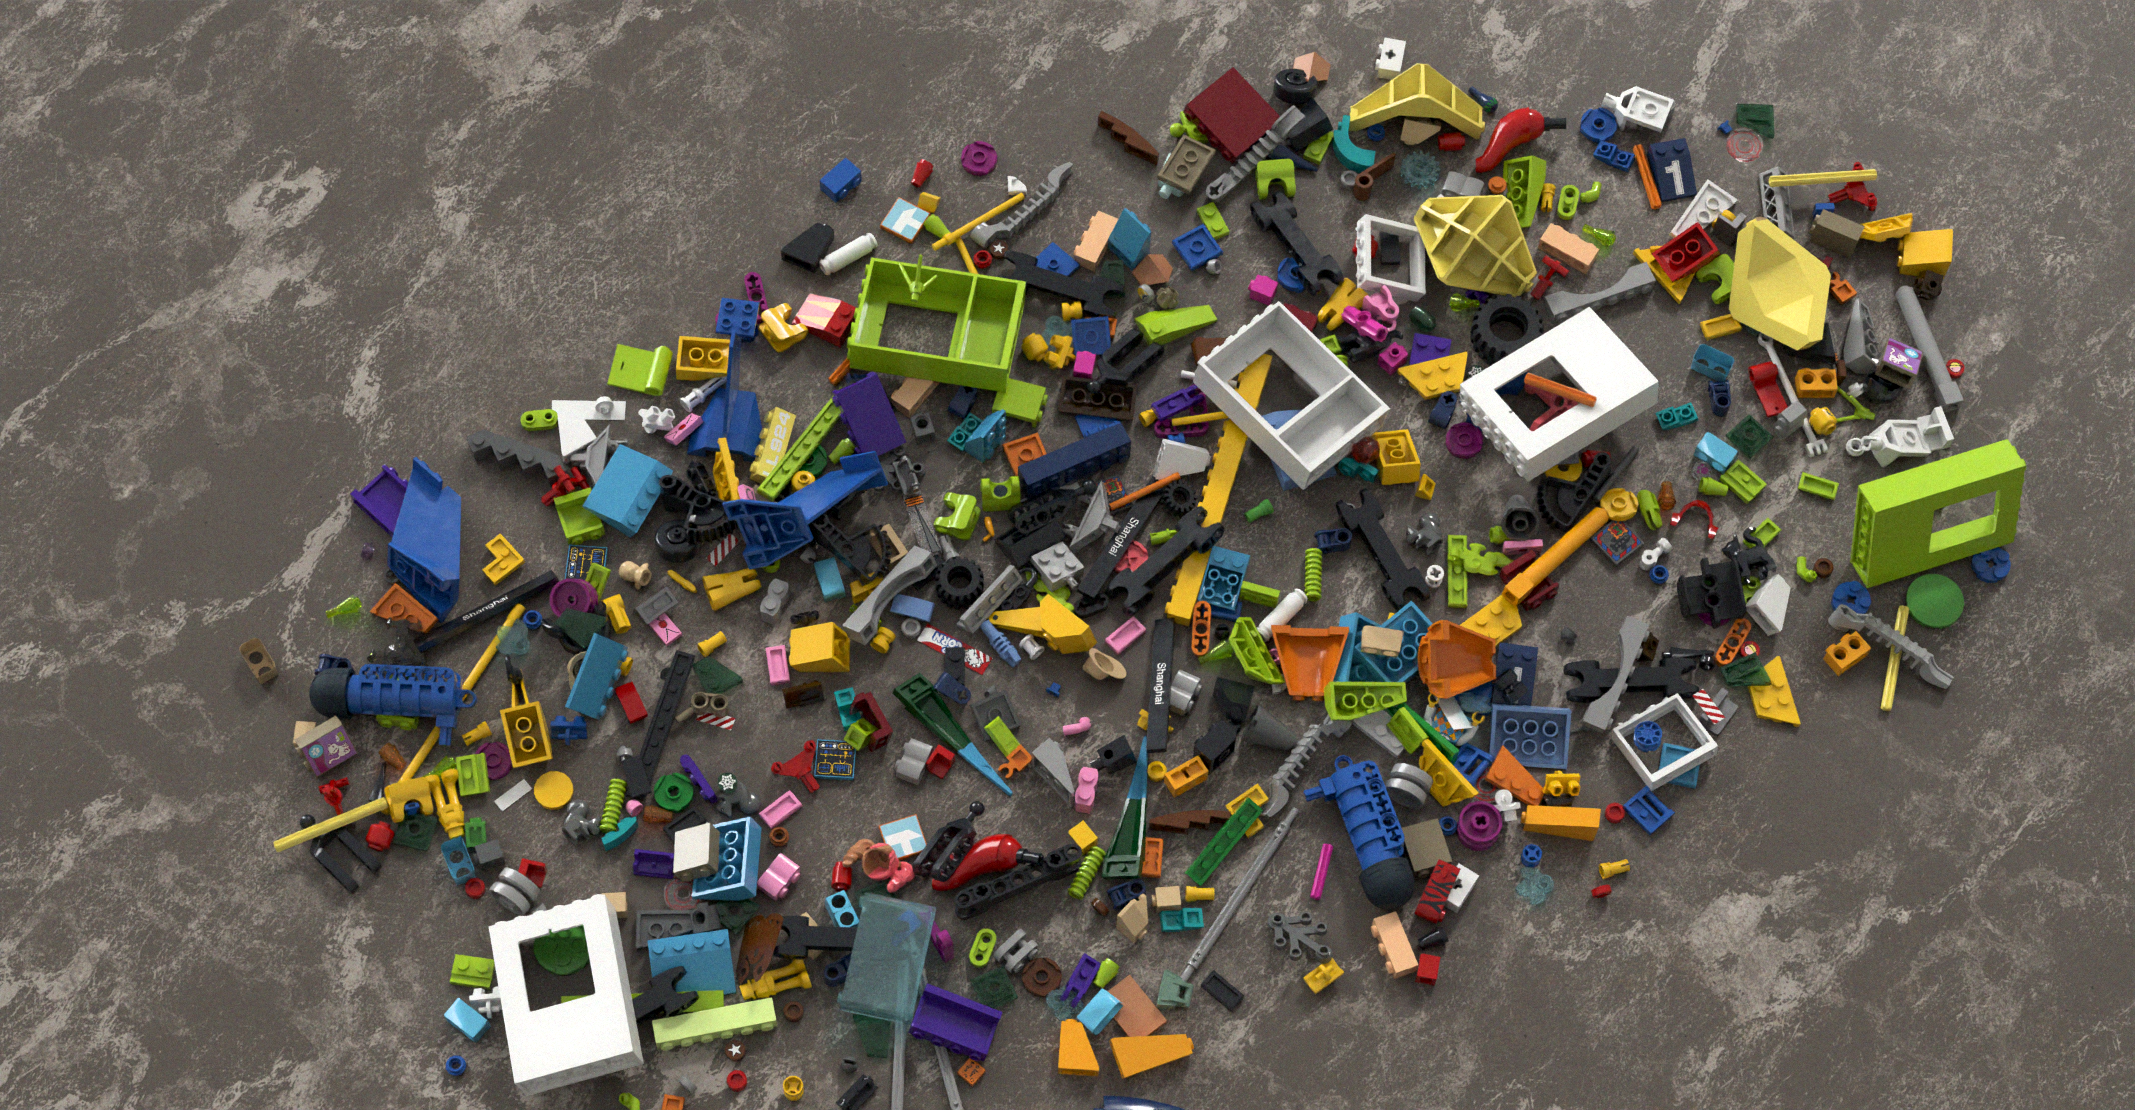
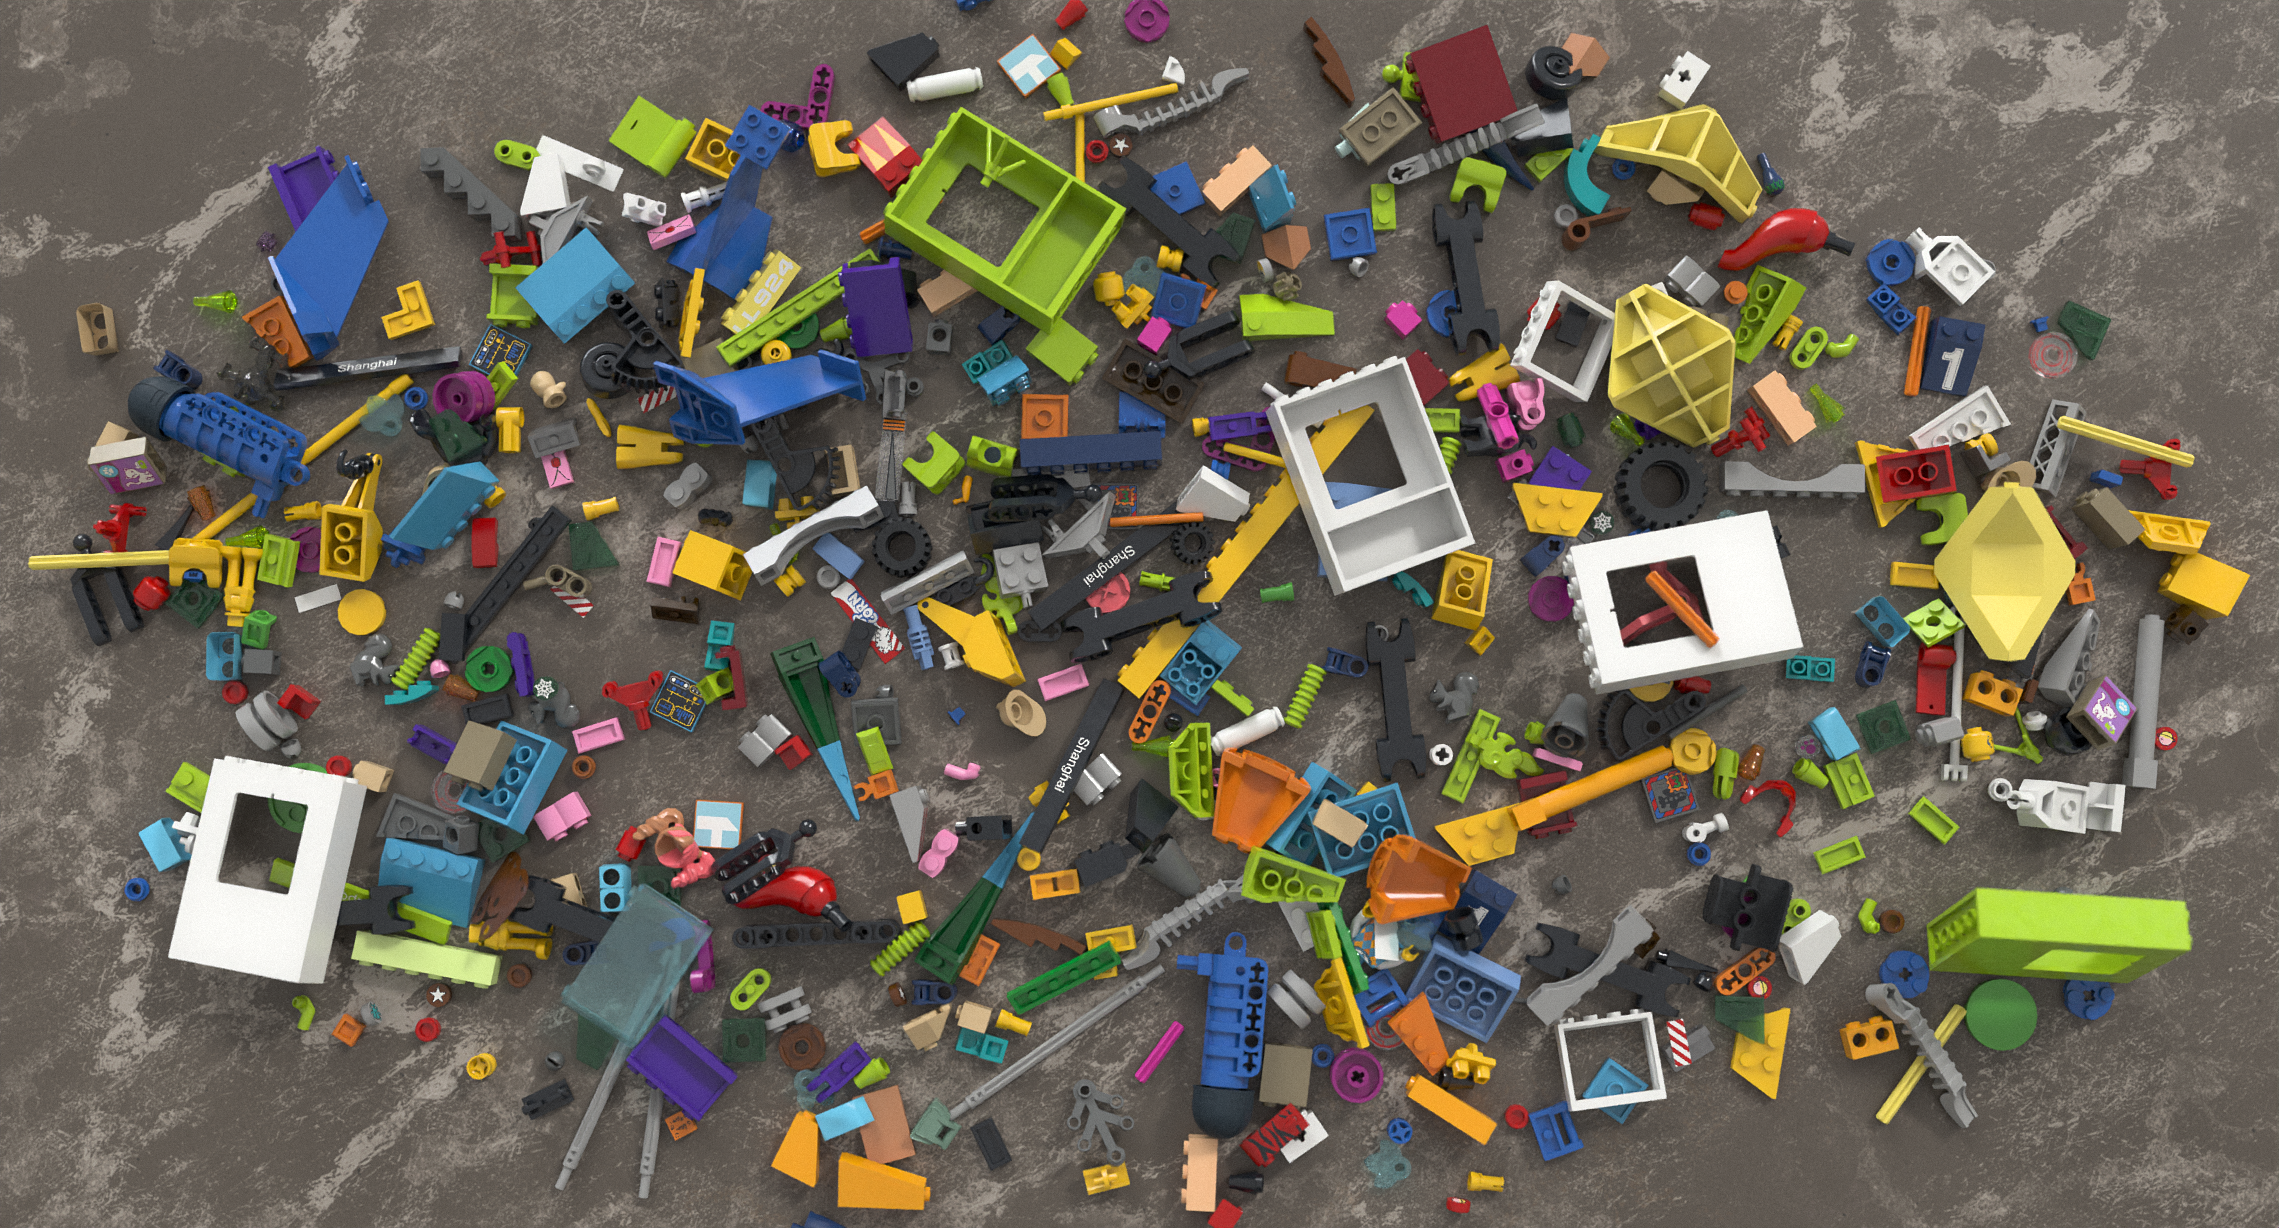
camera: 25 degrees right, 20 degrees up
(746, 492) = (701, 351): bright pink tile -> none
(1366, 450) = (1429, 575): clear red head -> none
(1421, 168) = (1643, 238): clear light blue gear -> none
(1505, 807) = (1394, 1067): white hips -> none
(1648, 736) = (1592, 1054): blue wheel -> none
(1750, 350) = (1937, 613): none -> lime piece
(1750, 559) = (1818, 884): black animal -> none

